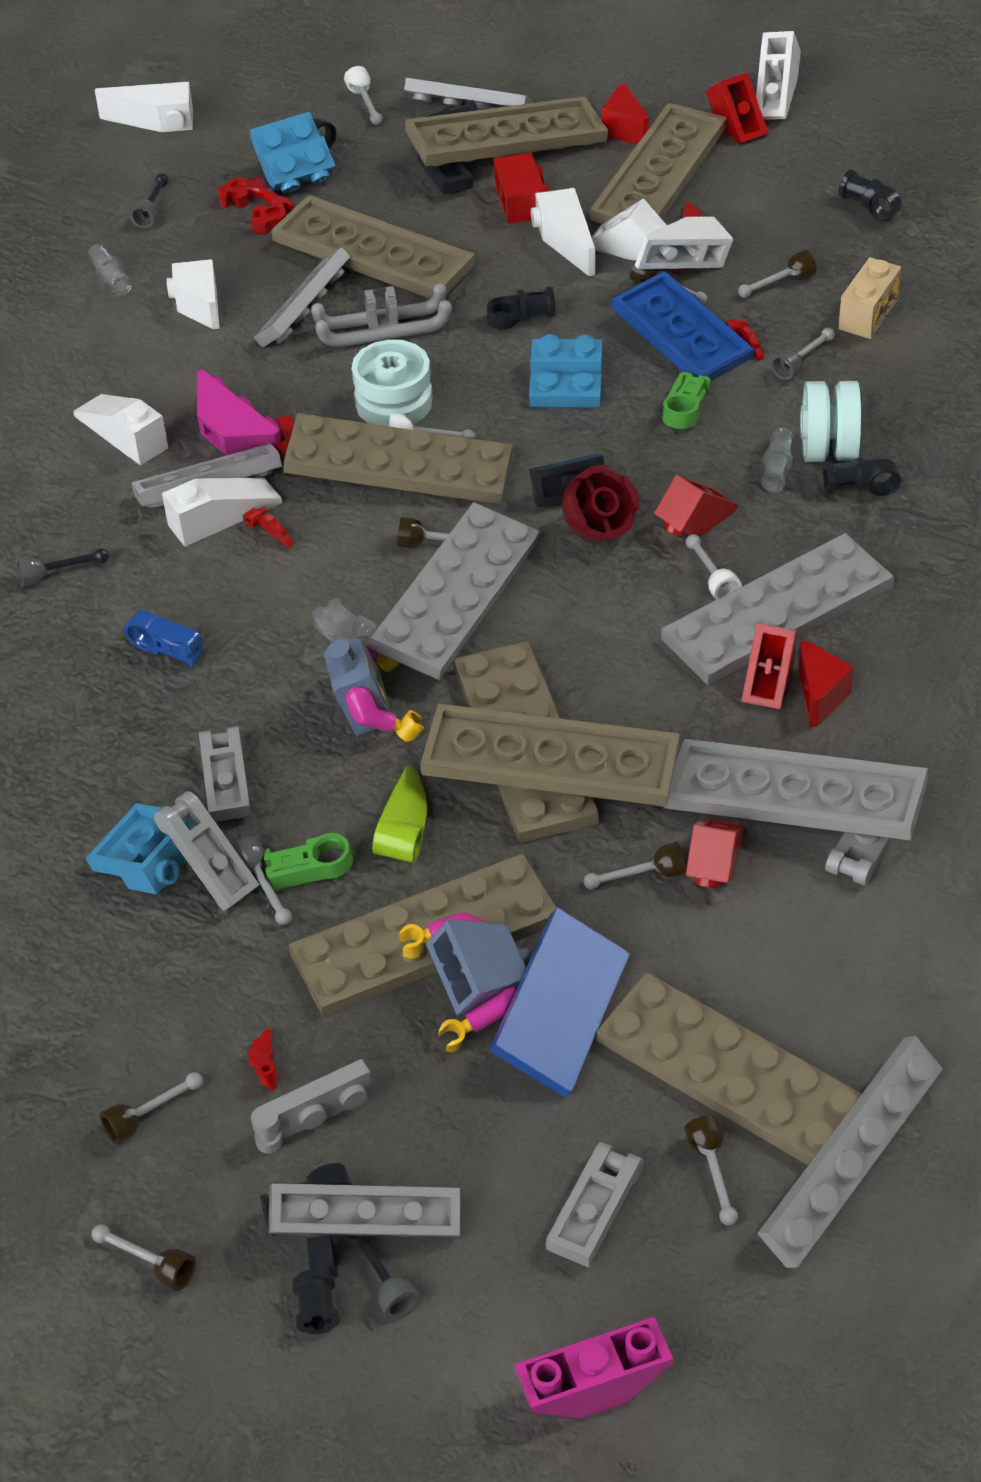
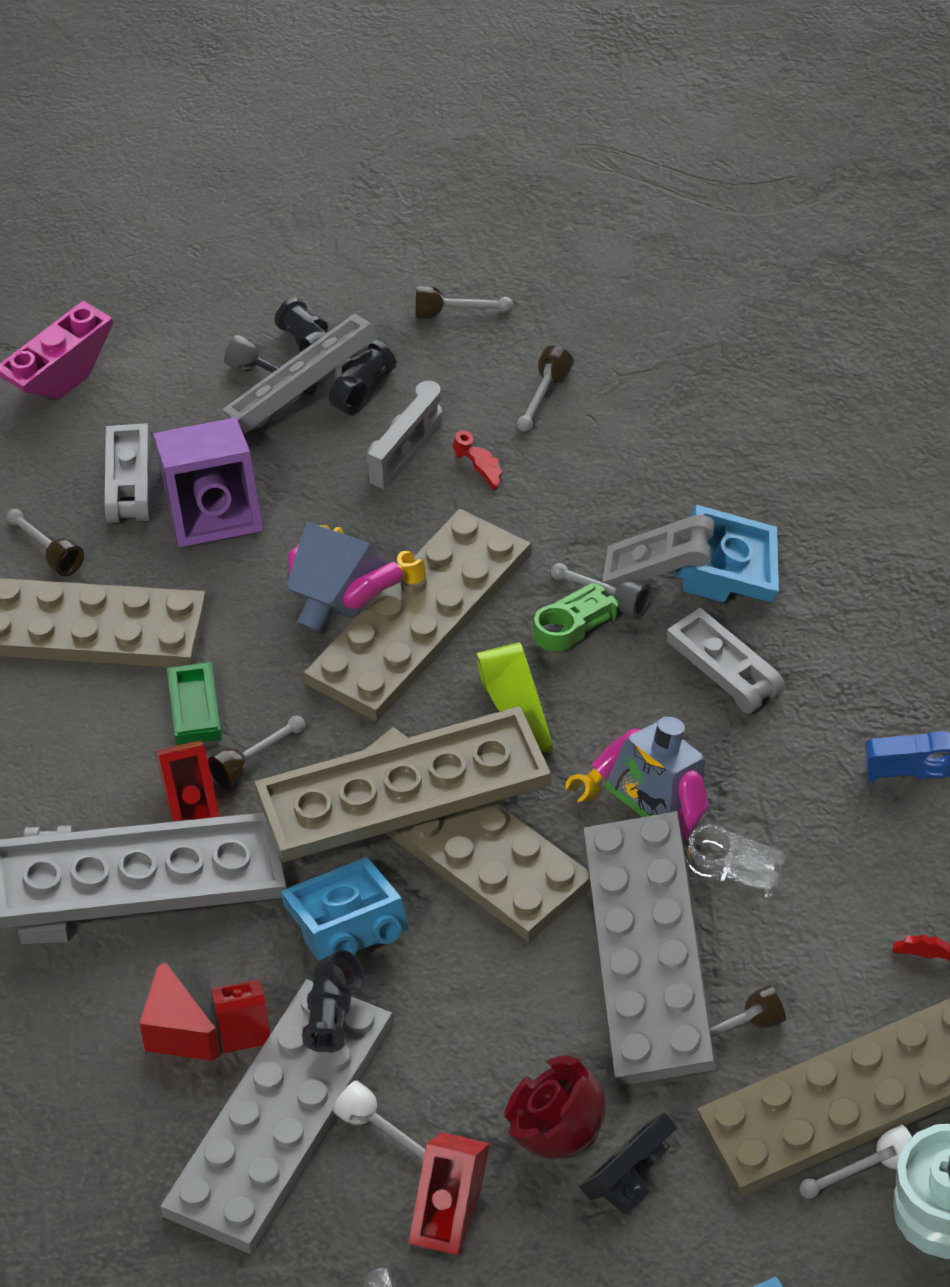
camera: 150 degrees right, 0 degrees up
(524, 1143) = (208, 482): none -> medium lavender slope
(559, 1002) = (248, 590): tile -> none
(652, 696) = (346, 909): none -> dark azure plate
(665, 939) = (194, 703): none -> green tile
(708, 620) = (327, 991): none -> black connector

